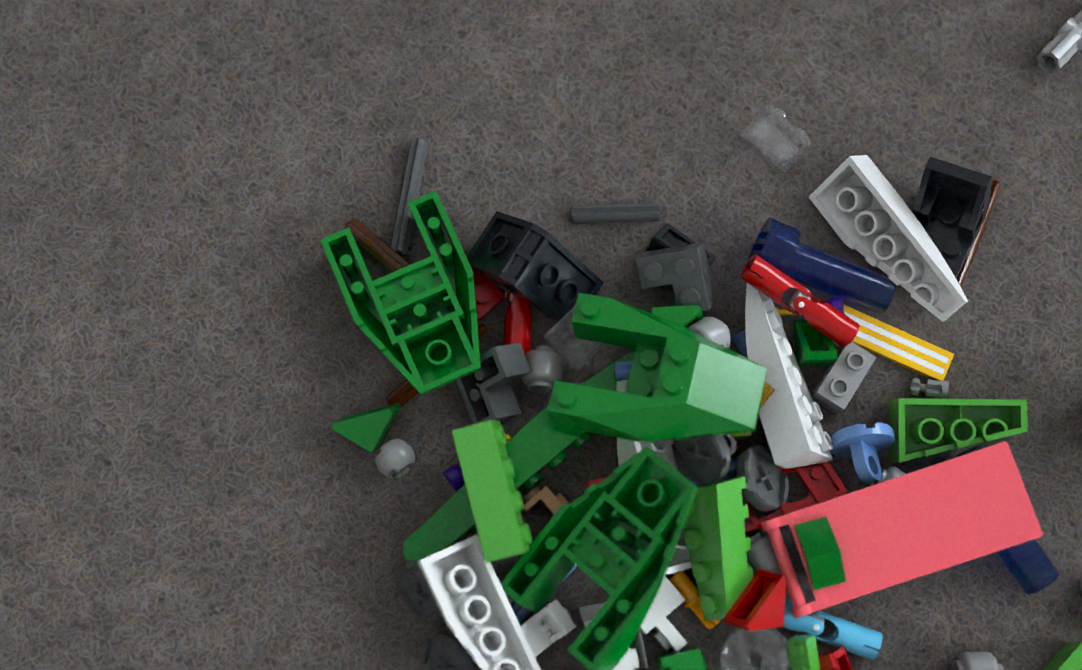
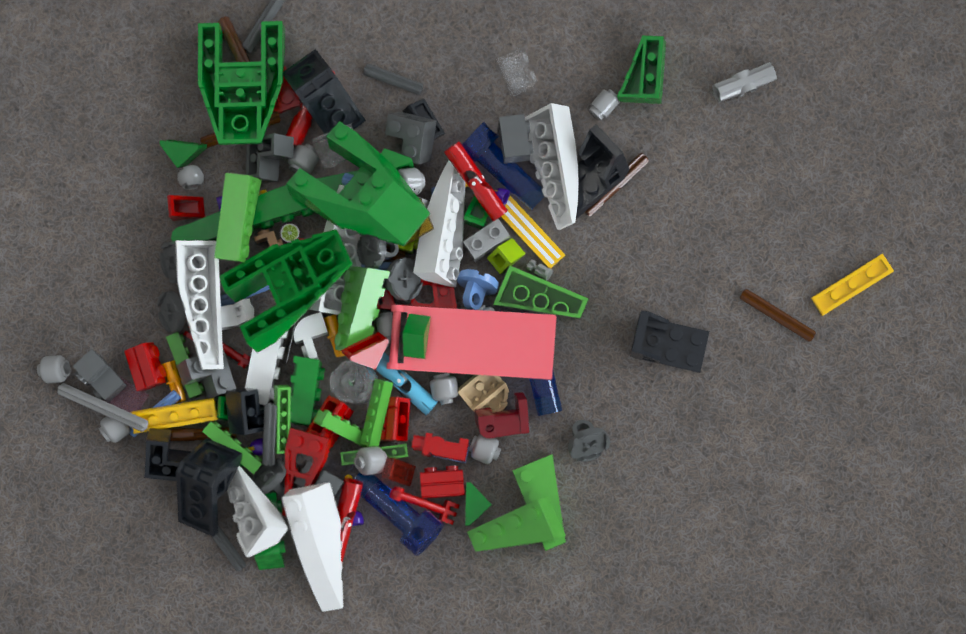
camera: 30 degrees right, 5 degrees up
(406, 504) = (185, 207): none -> red slope
(567, 479) = (289, 232): none -> tile
(824, 222) = (514, 138): none -> dark grey brick
(876, 389) = (506, 255): none -> lime brick
(882, 611) = (444, 388): none -> light grey head
(909, 135) = (604, 104): none -> light grey brick
(940, 597) = (485, 392): none -> tan slope
(947, 71) = (645, 77): none -> green wedge
(992, 622) = (504, 422): none -> dark red piece

